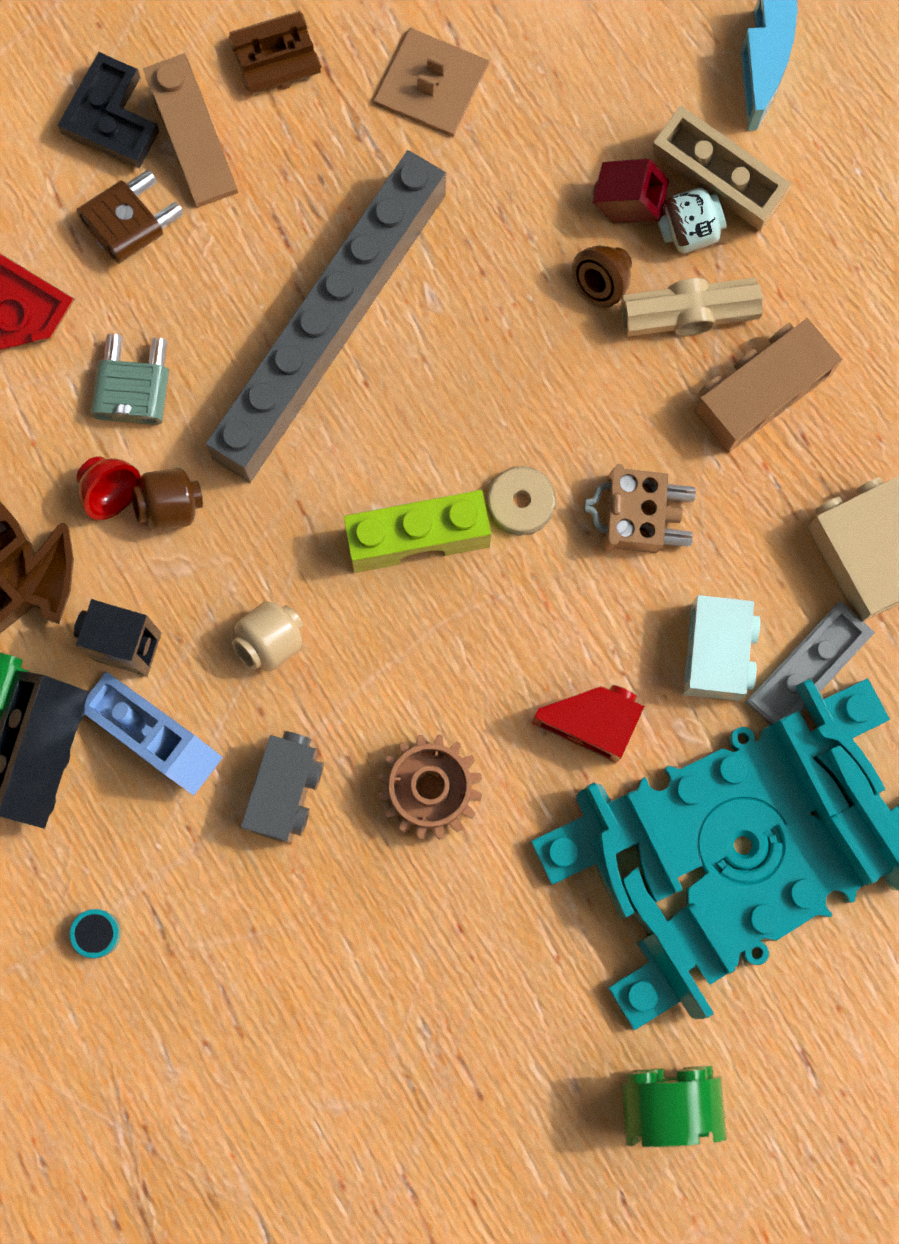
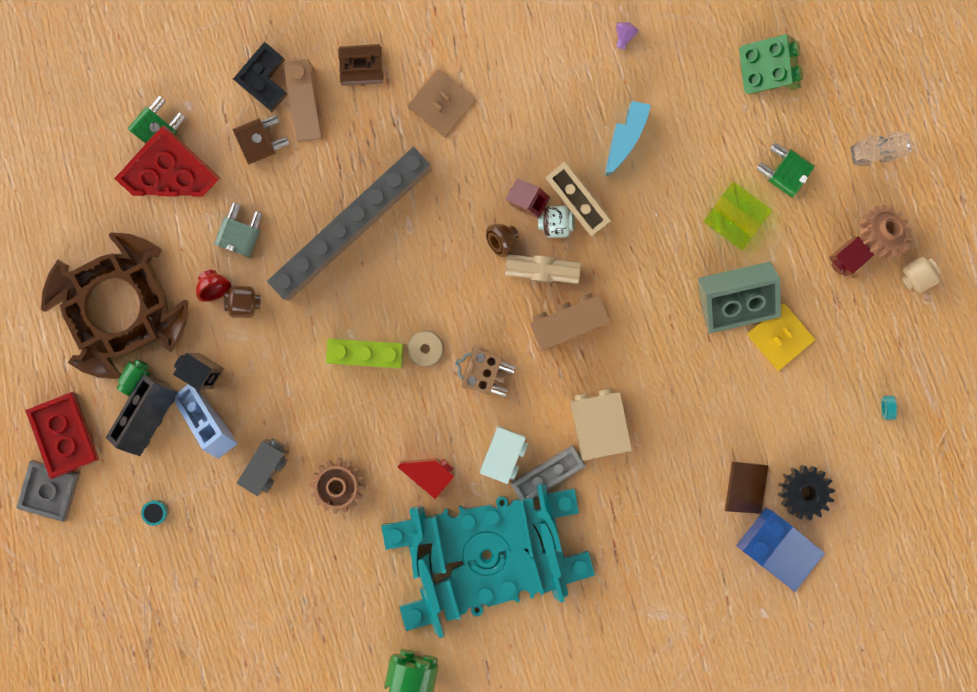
camera: 20 degrees right, 10 degrees up
(267, 636) = (275, 387): tan head -> none

